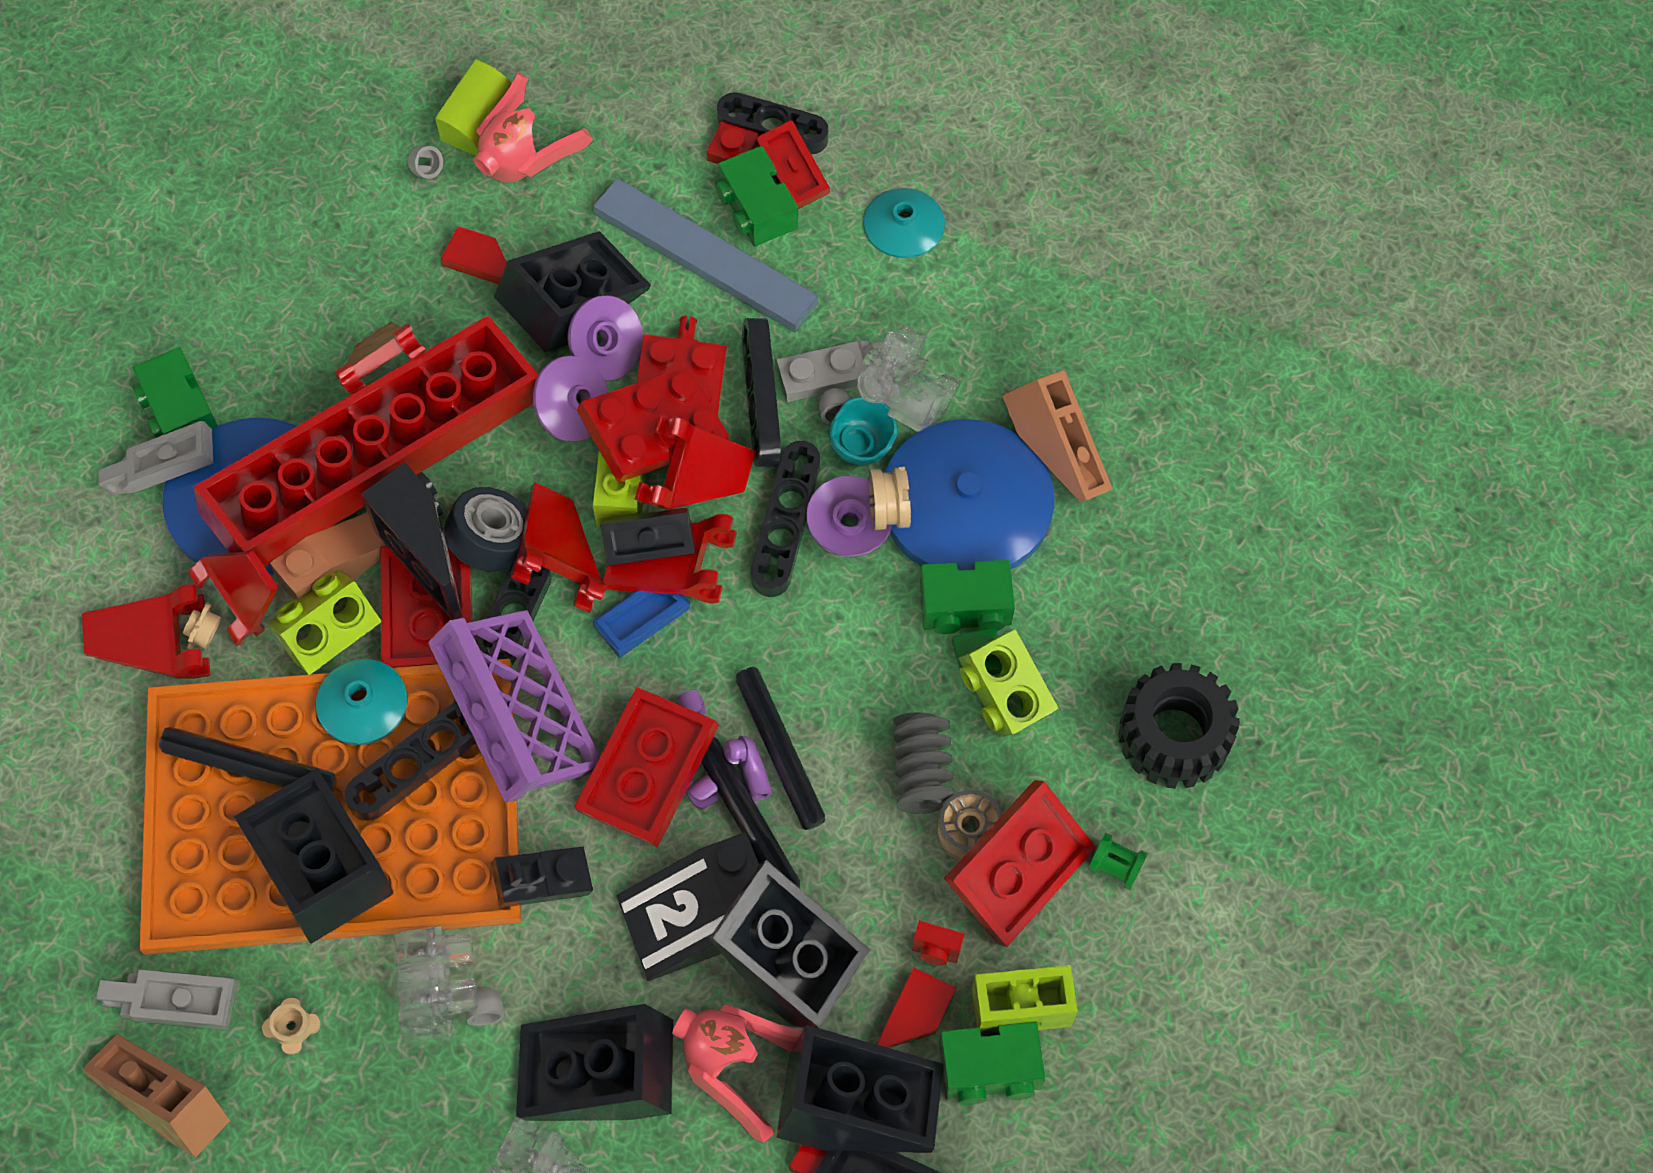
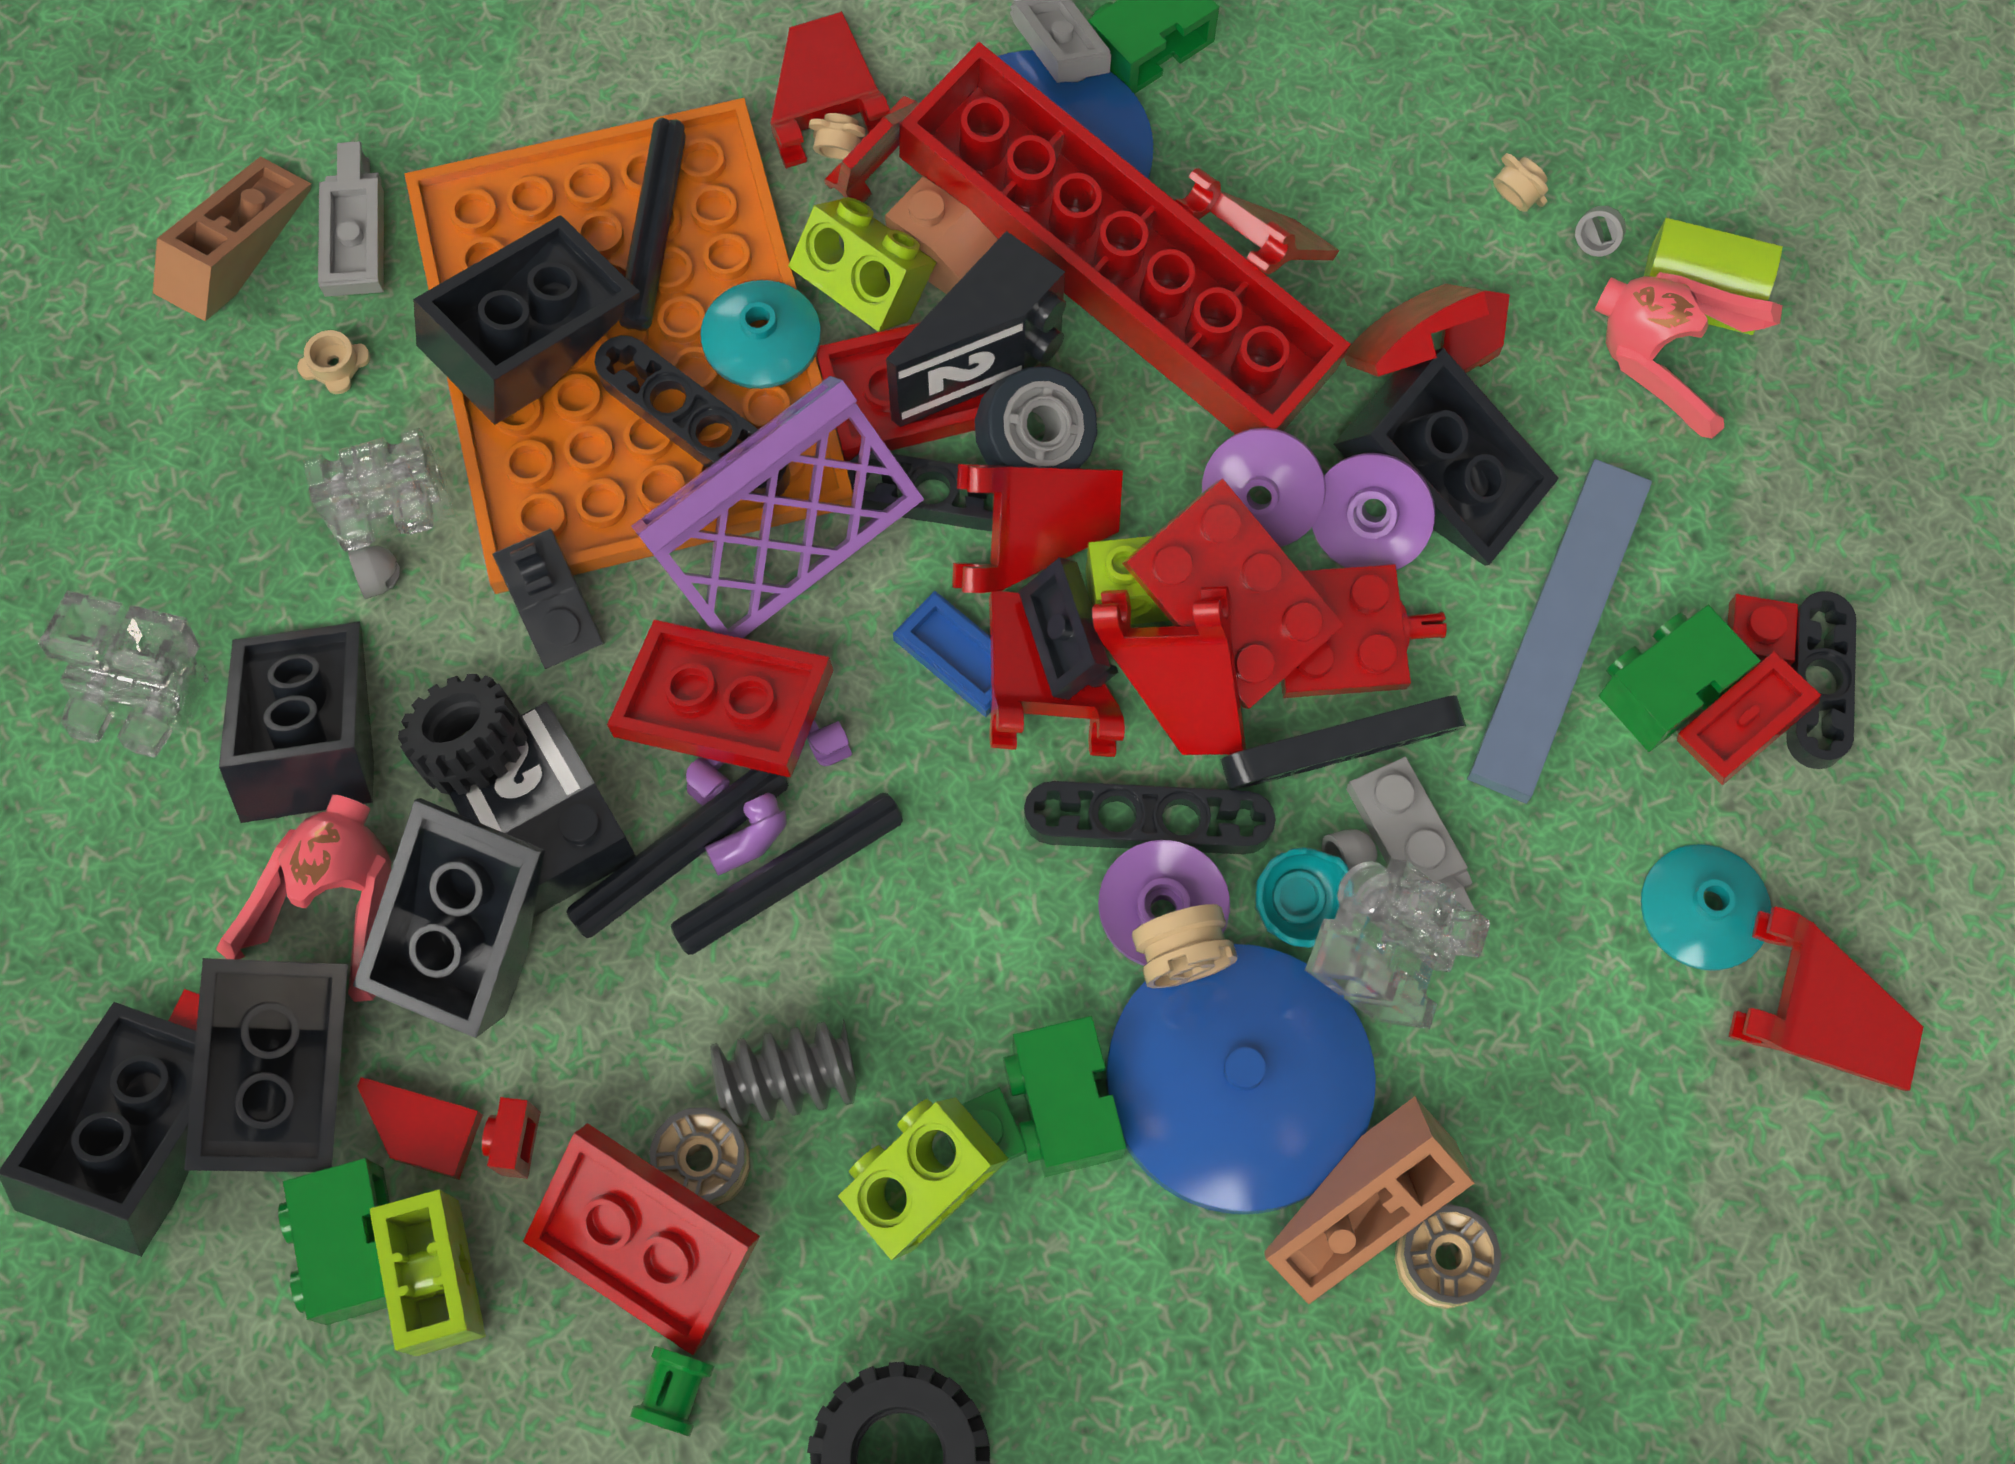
camera: 80 degrees right, 5 degrees up
(374, 198) = (1521, 182): none -> tan plate
(479, 279) = (1404, 333): none -> red slope
(613, 937) = (483, 751): none -> black tyre
(980, 172) = (1830, 1008): none -> red flag
(1100, 390) = (1476, 1259): none -> tan wheel

